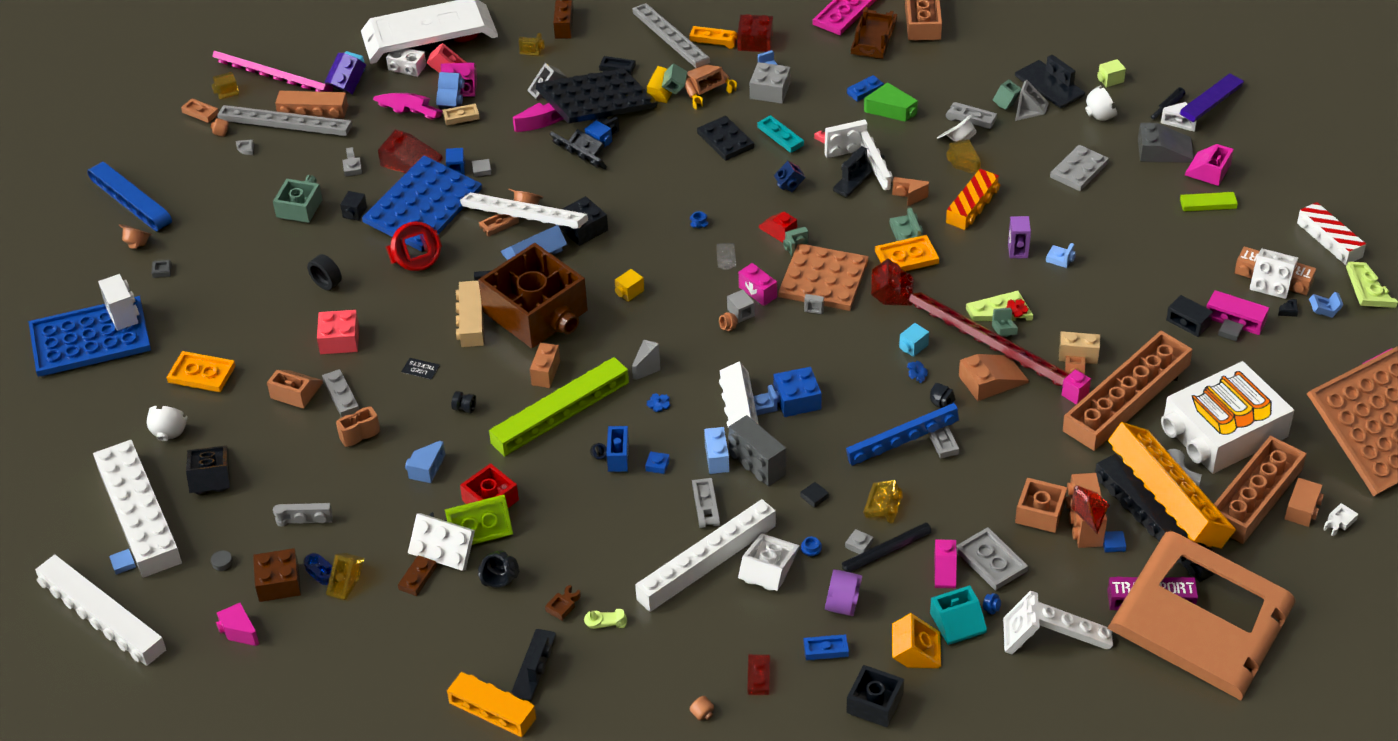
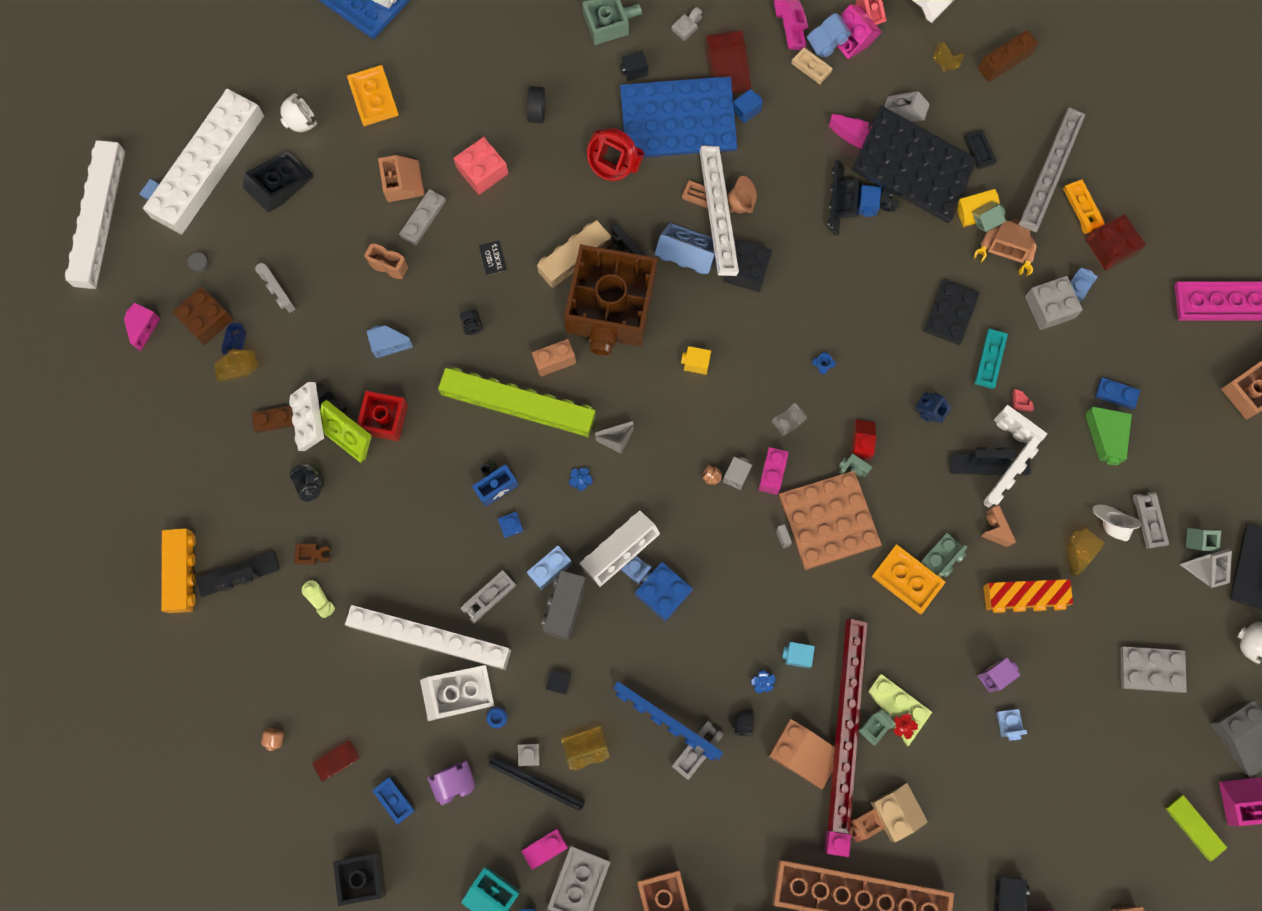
camera: 55 degrees right, 30 degrees up
(481, 167) = (759, 132): light grey tile -> none
(873, 33) = (1202, 351): reddish brown piece -> none
(891, 284) = (857, 591): clear red slope -> none
(915, 643) = (441, 877): light orange slope -> none

